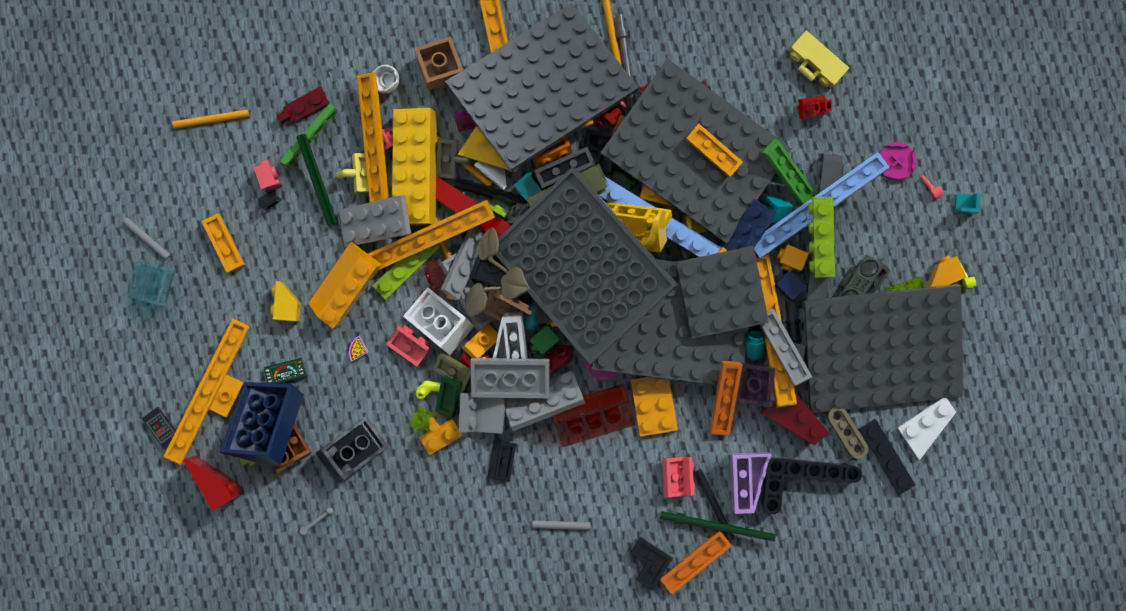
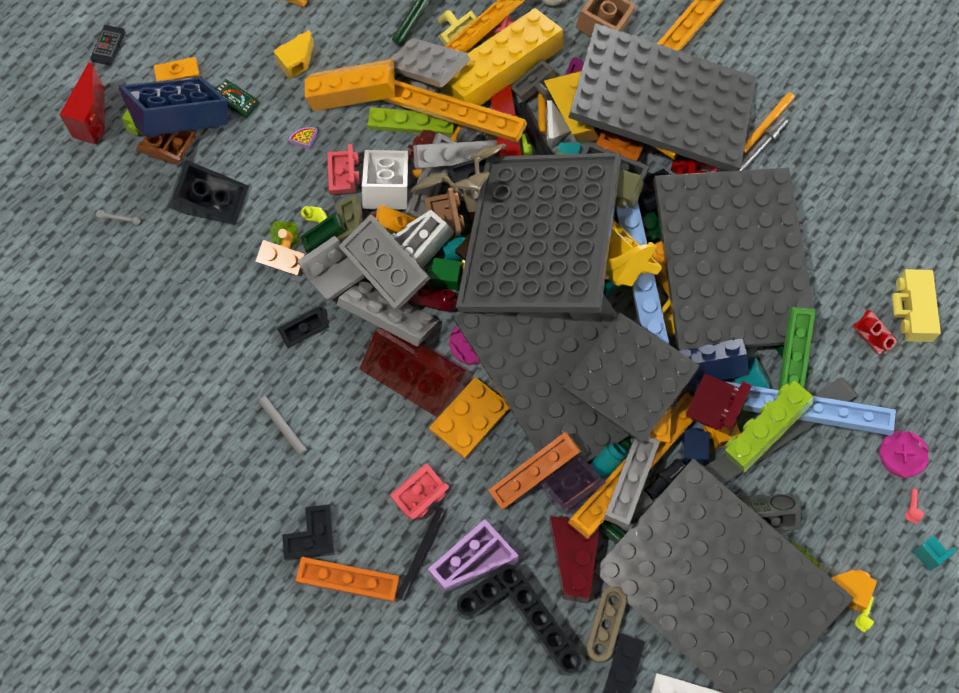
camera: 55 degrees right, 20 degrees down
(206, 391) = (147, 57): light orange tile -> none
(679, 518) = (380, 531): dark green bar -> none
(714, 150) = (750, 264): light orange plate -> none
(780, 251) = (718, 403): none -> dark red bracket

